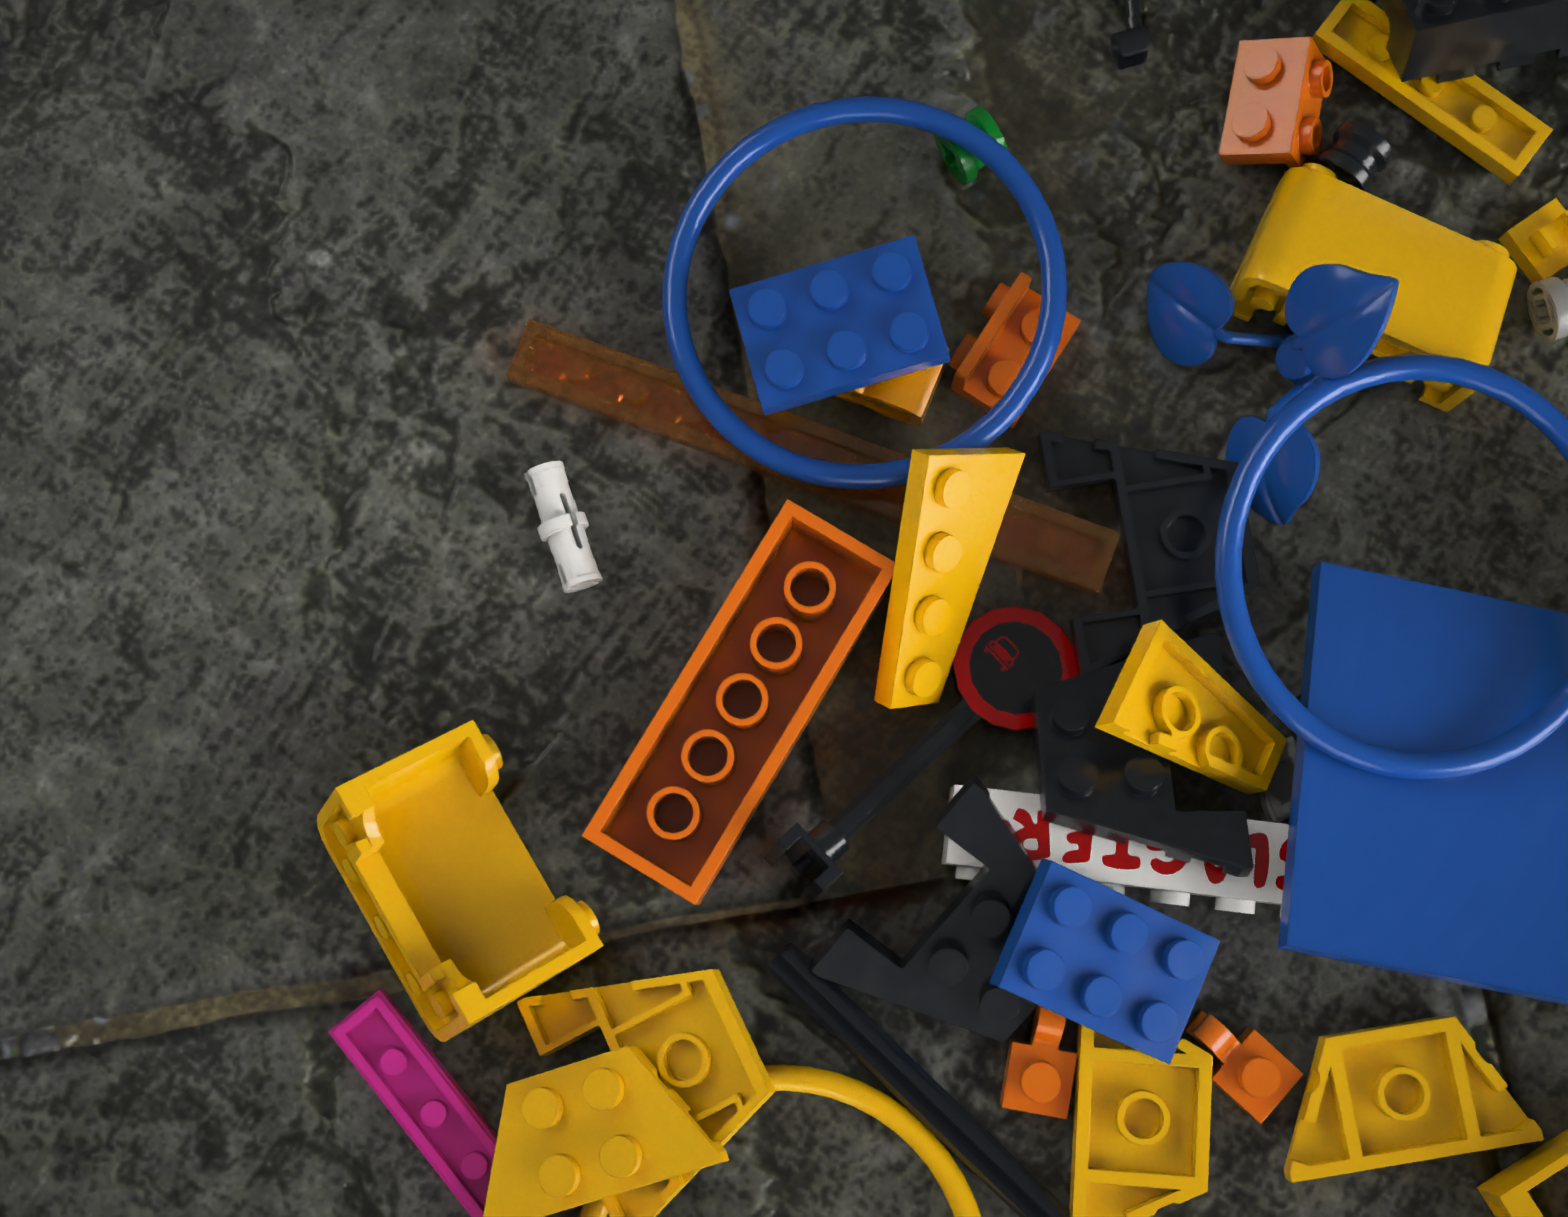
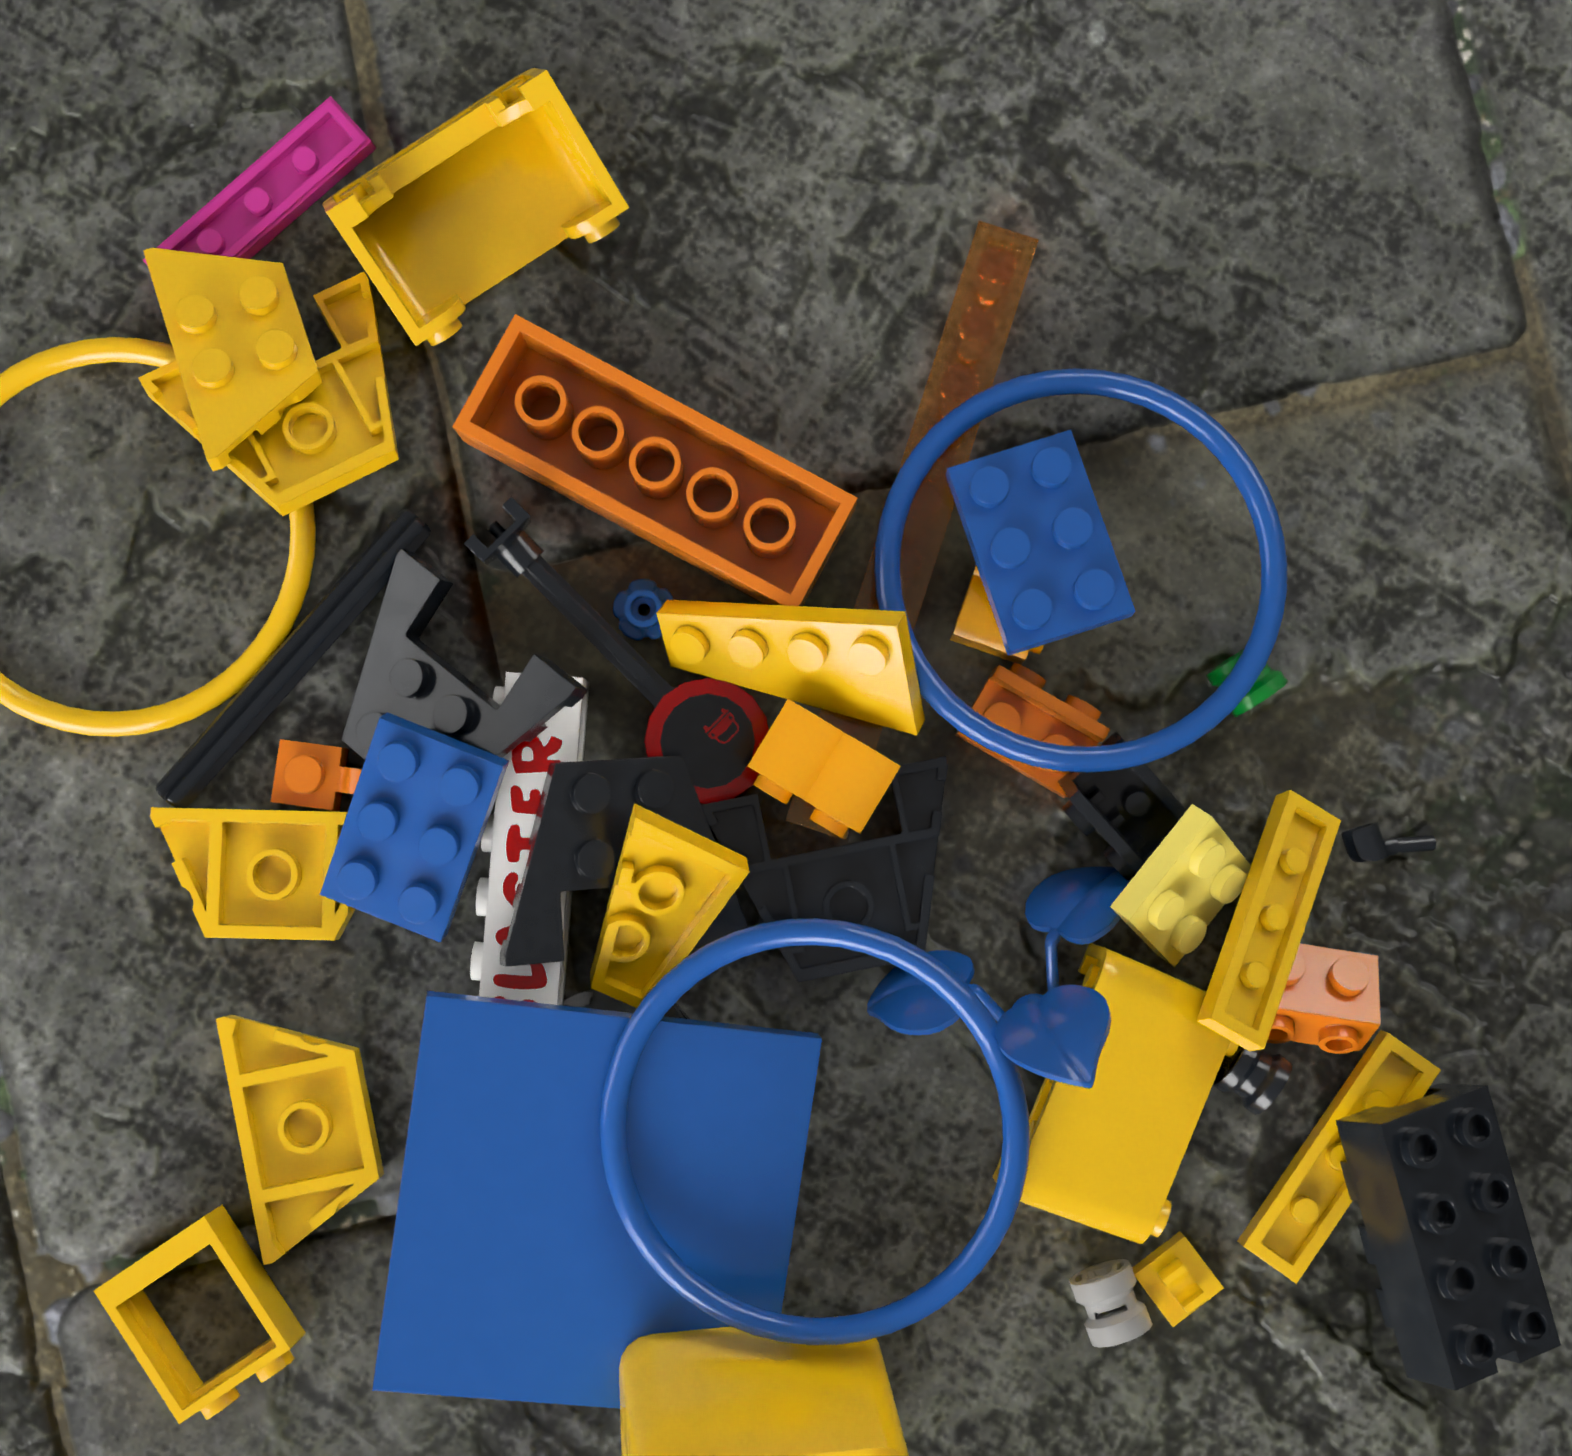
camera: 80 degrees right, 5 degrees up
(563, 526) = (830, 288): white pin -> none
(877, 743) = (627, 604): none -> blue plate
(1055, 546) = (823, 768): none -> light orange brick
(1102, 257) = (1125, 807): none -> black bracket
(1176, 211) = (1183, 886): none -> light yellow plate
(1211, 132) = (1269, 921): none -> yellow plate
(1246, 1067) = (325, 977): orange plate -> none

